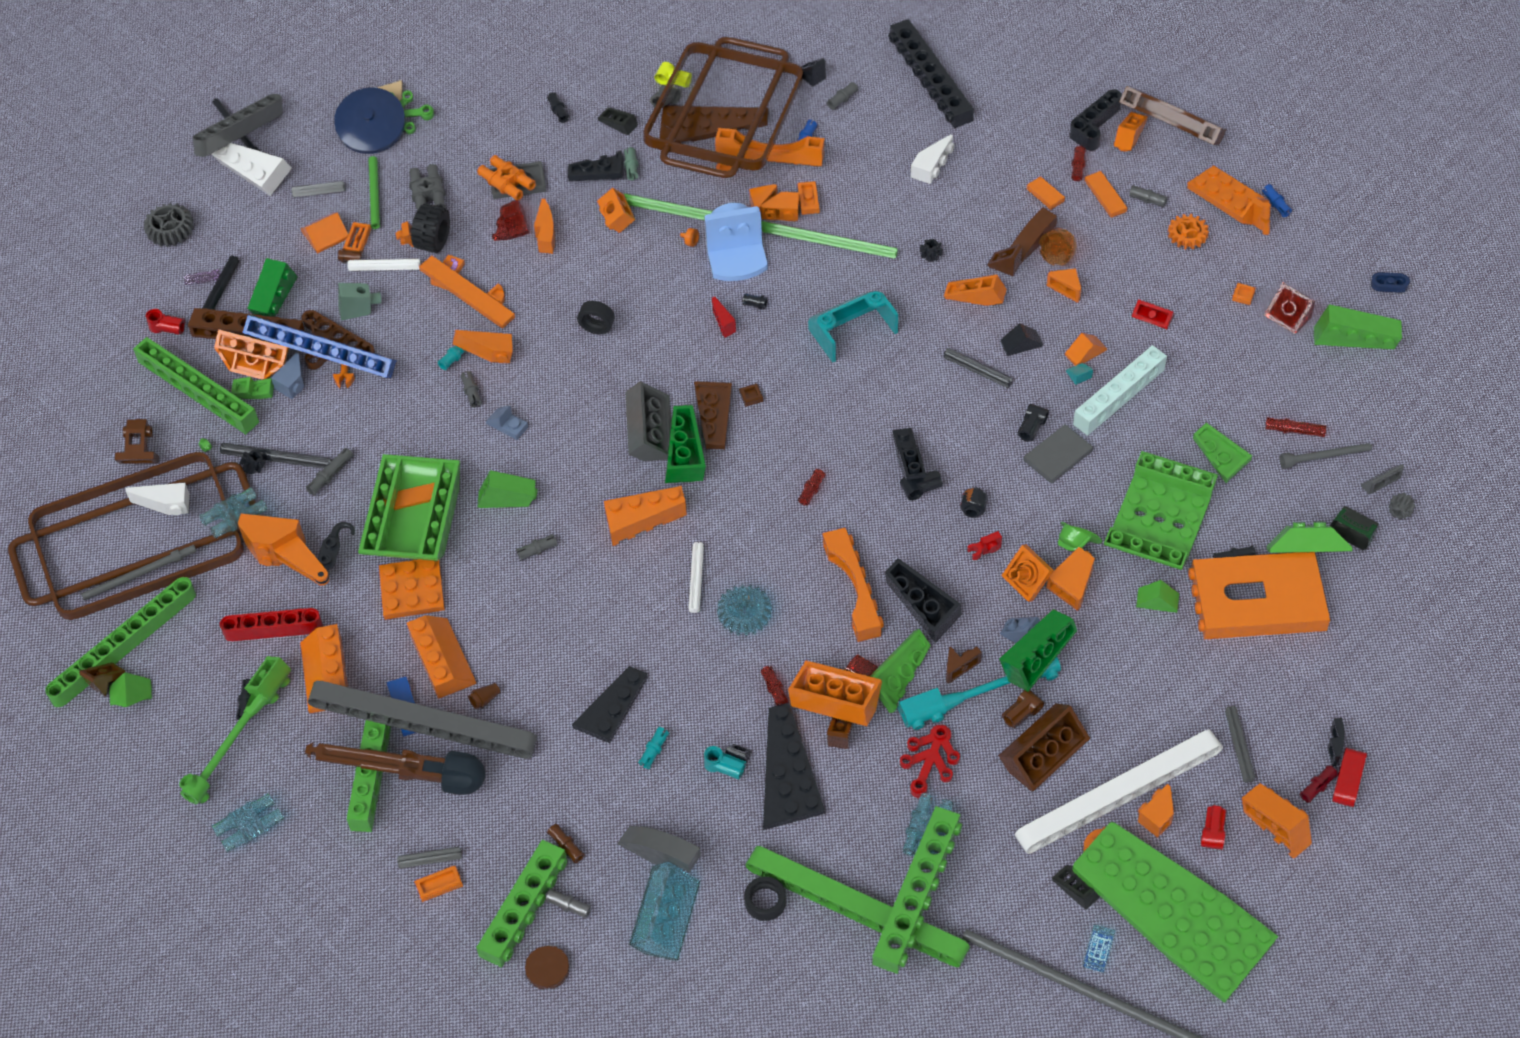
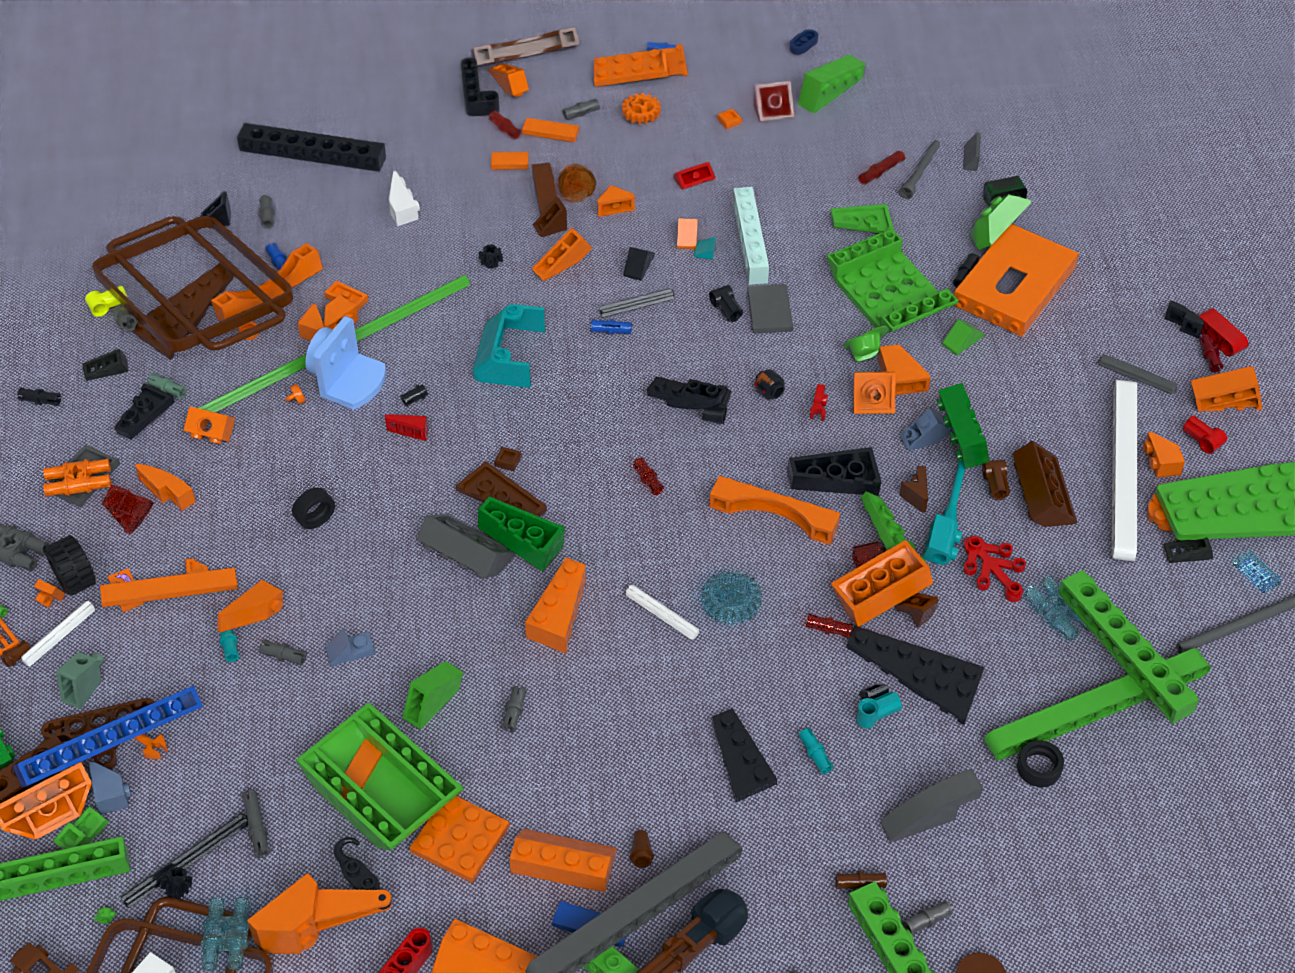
camera: 55 degrees left, 5 degrees down
(664, 912) = (996, 847): clear light blue slope -> none
(940, 372) = (611, 326): none -> blue pin
(1401, 506) = (1009, 157): dark grey gear -> none

